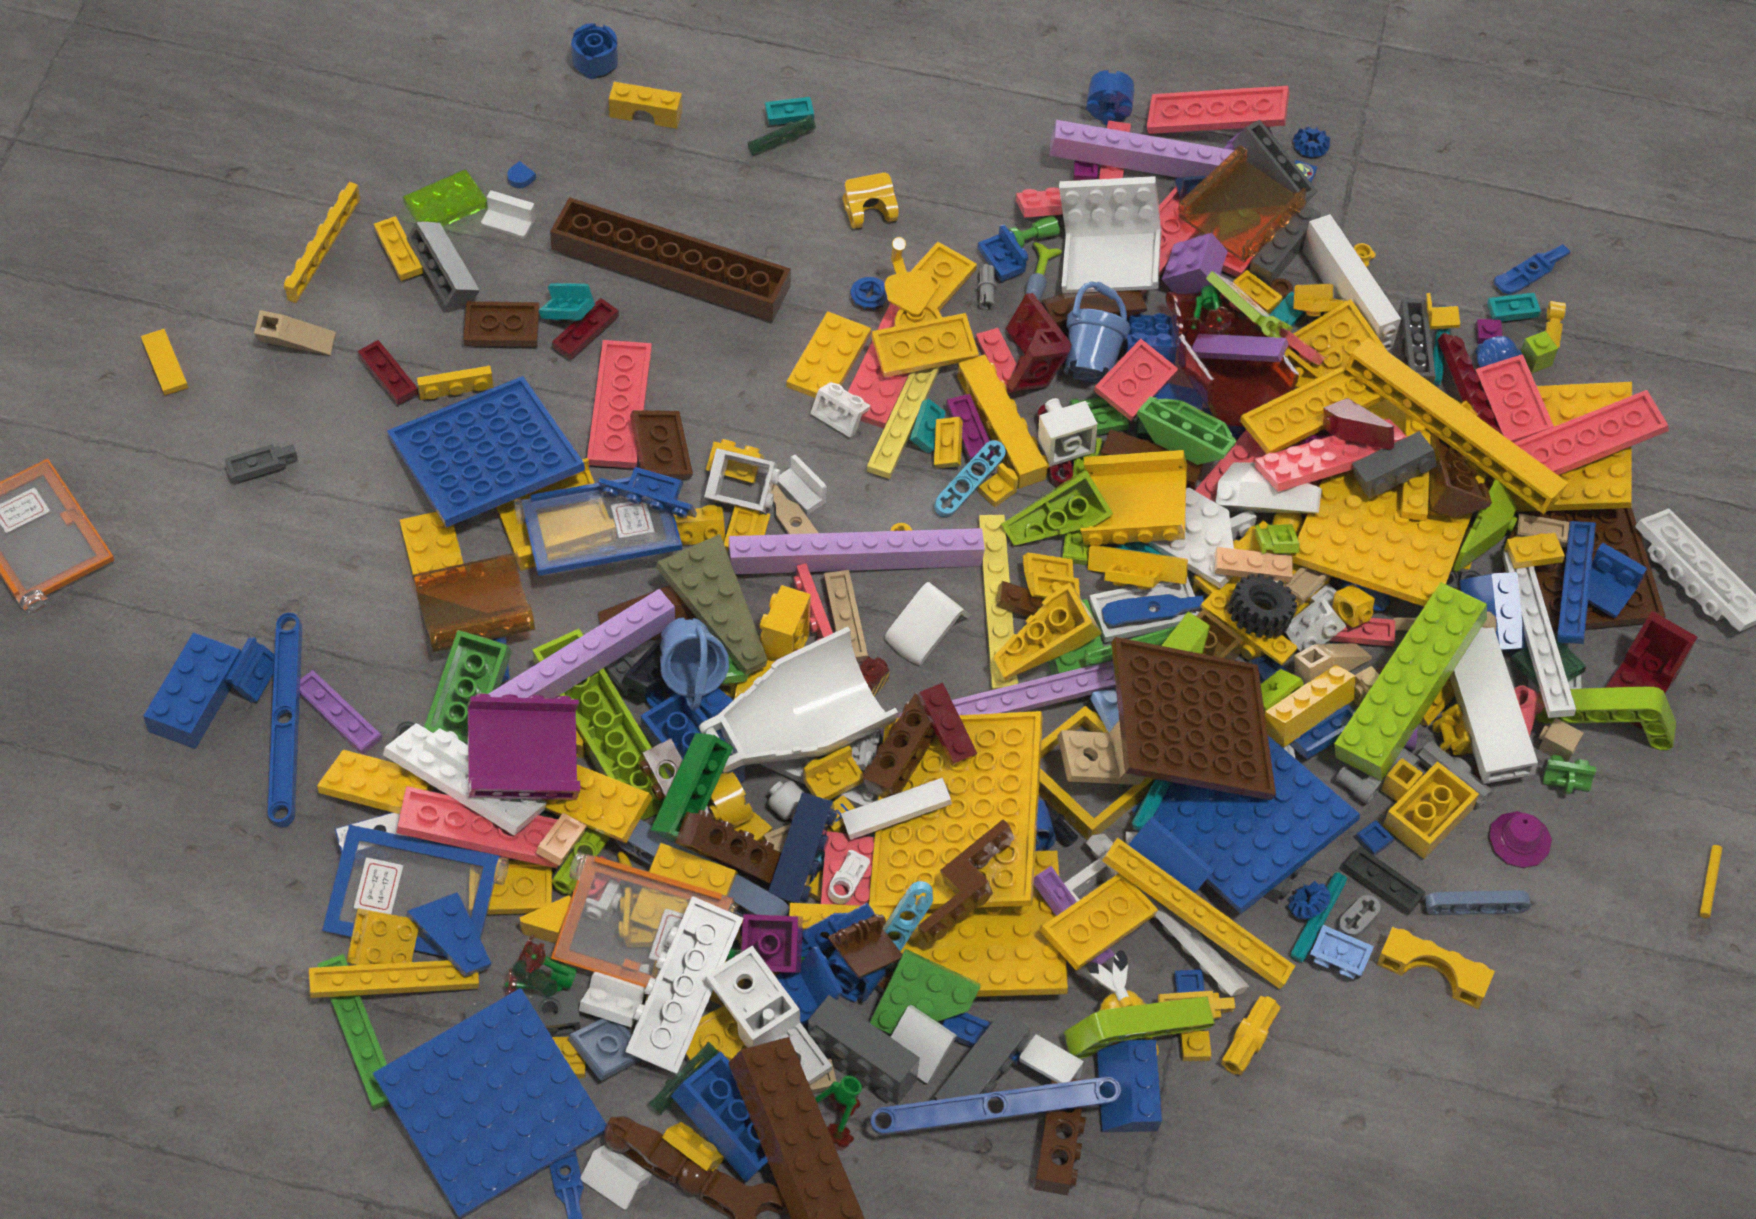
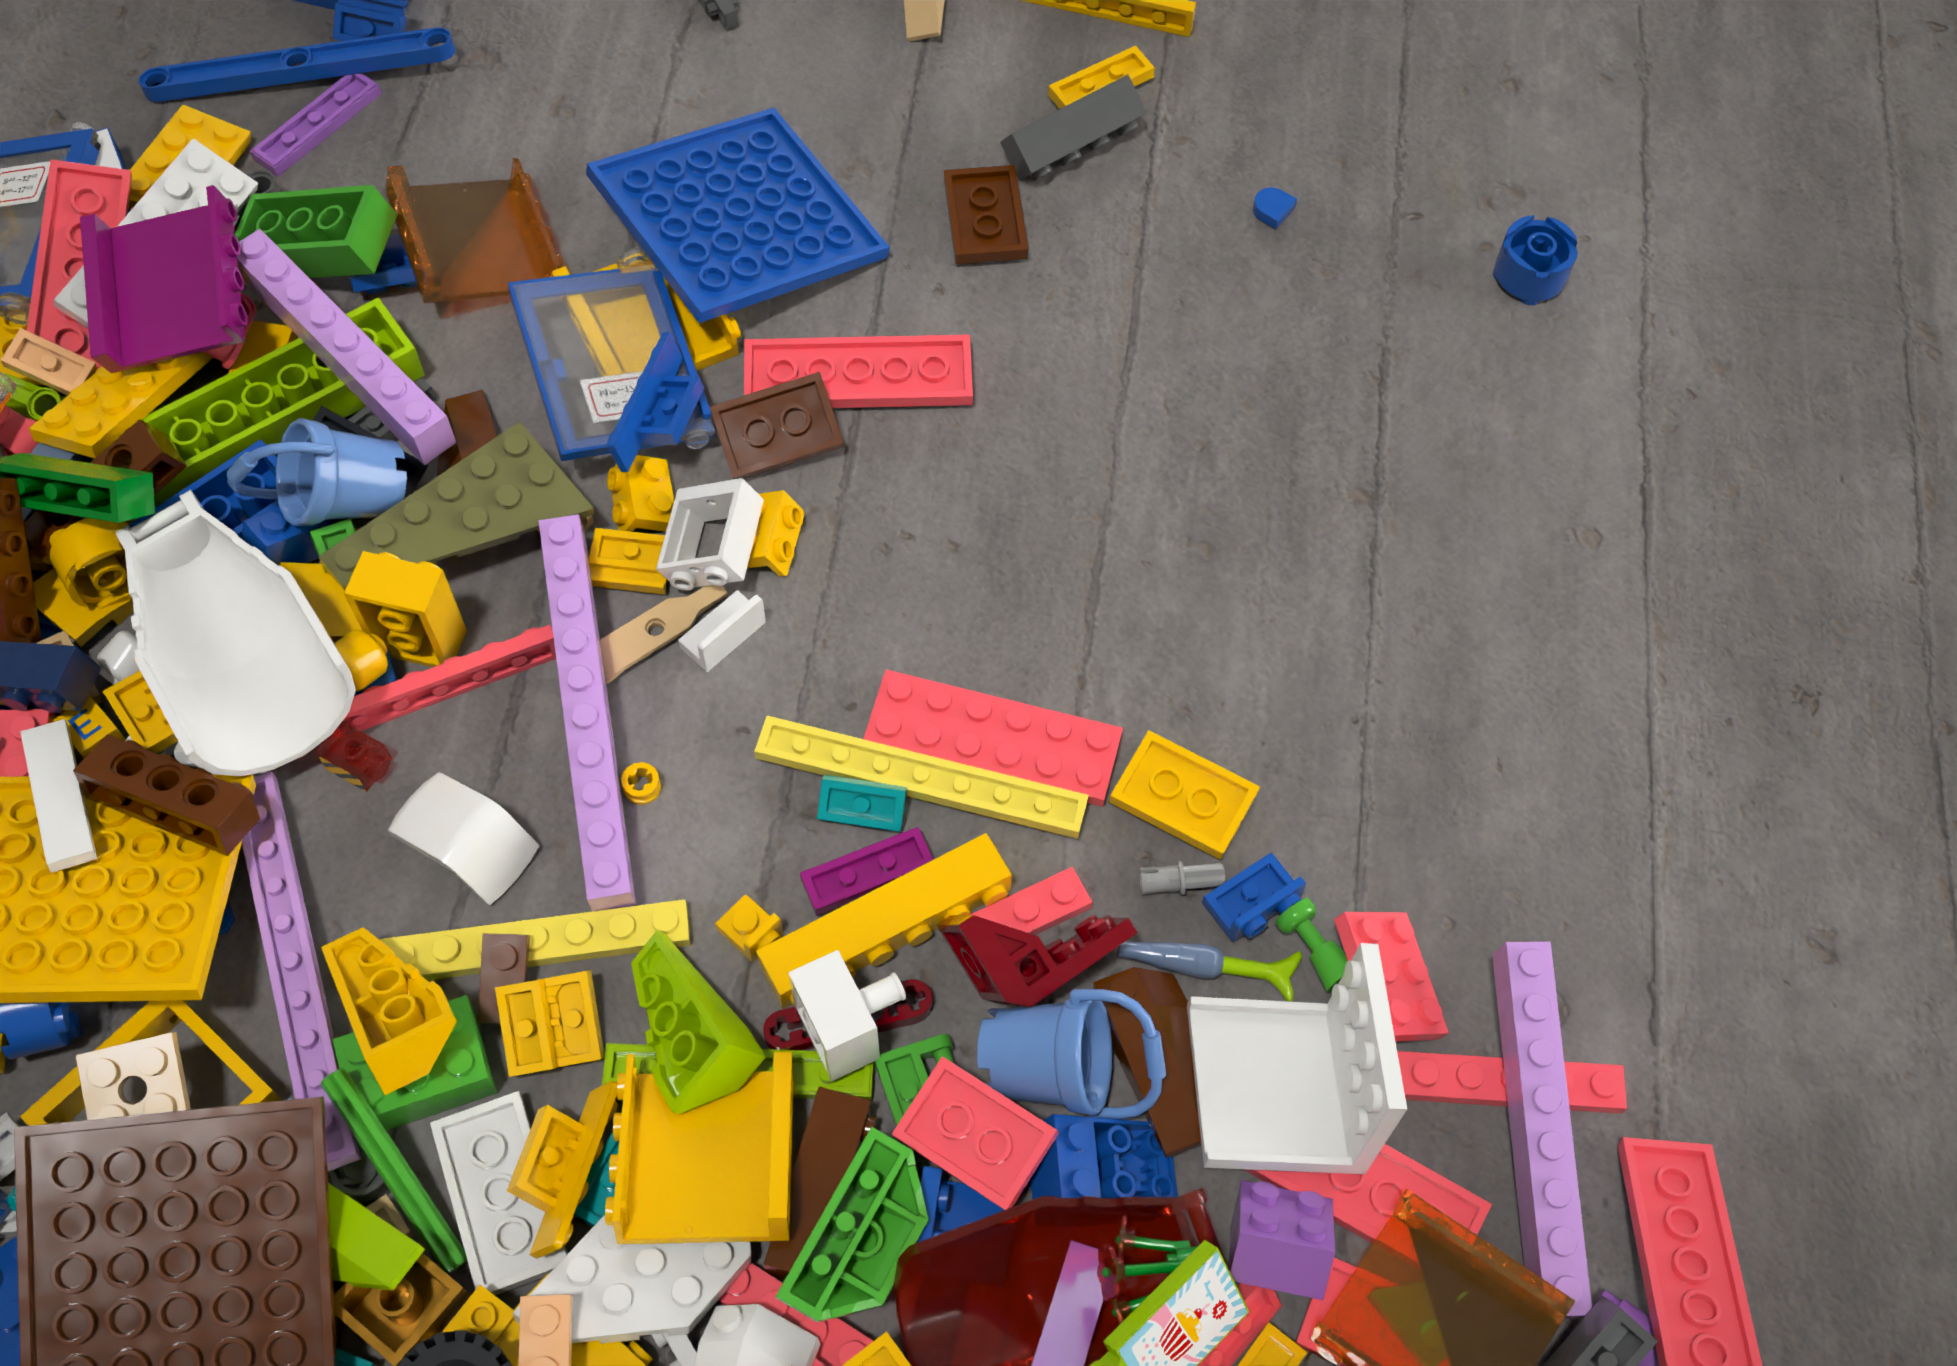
camera: 85 degrees right, 5 degrees up
(388, 372) = (878, 98): dark red plate -> none
(430, 543) = (568, 193): yellow plate -> none
(446, 199) = (1204, 127): clear neon green plate -> none
(455, 382) = (866, 172): yellow plate -> none
(509, 215) = (1188, 201): white panel -> none
(567, 302) = (1023, 280): teal bracket -> none
(582, 332) = (993, 314): dark red plate -> none
(661, 104) = (1448, 328): yellow arch -> none
(670, 259) = (1135, 407): reddish brown brick -> none
(788, 110) = (1496, 541): teal plate -> none
(805, 125) = (1471, 566): clear green pin -> none
(828, 354) = (993, 648): yellow plate -> none
(839, 408) = (881, 665): white bracket -> none
(845, 610) = (472, 713): tan plate -> none
(863, 287) = (1150, 687): blue gear -> none
(870, 193) = (1337, 662): yellow piece -> none
(917, 339) = (1020, 765): yellow plate -> none
(947, 724) = (176, 840): dark red plate -> none
(948, 442) = (827, 836): yellow plate -> none
(969, 478) = (754, 875): medium azure beam -> none
(1061, 827) = (57, 1067): black axle -> none
(1085, 171) = (1483, 1030): magenta plate -> none
(1110, 96) = (1668, 1057): blue brick -> none
(1138, 610) = (479, 1173): blue piece -> none
(1187, 184) = (1468, 1215): dark blue bracket -> none

